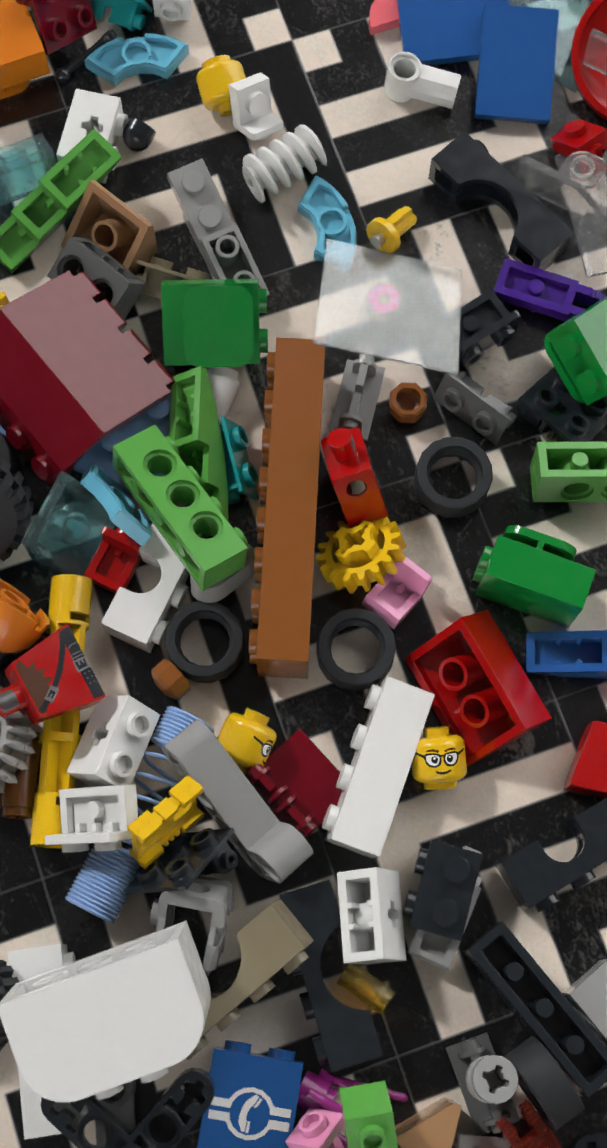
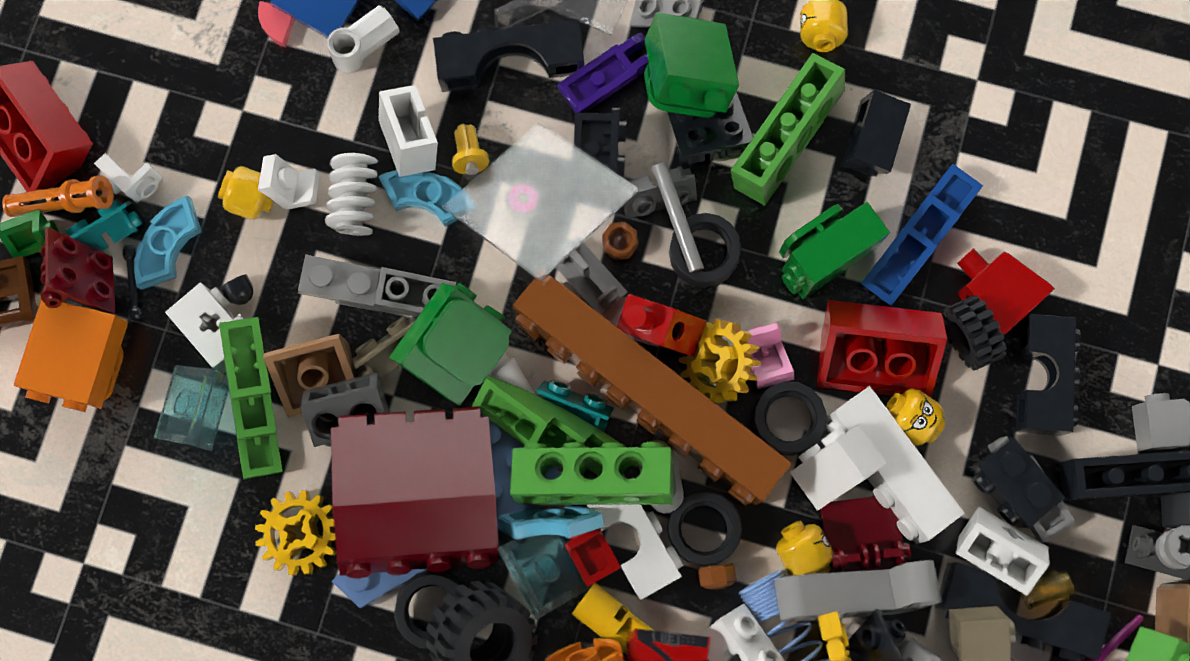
camera: 50 degrees left, 5 degrees up
(340, 712) = (838, 466): none -> white piece
(368, 165) = (403, 124): none -> white piece
(461, 429) = (677, 217): none -> light grey bar
(554, 757) = (974, 332): none -> black tyre

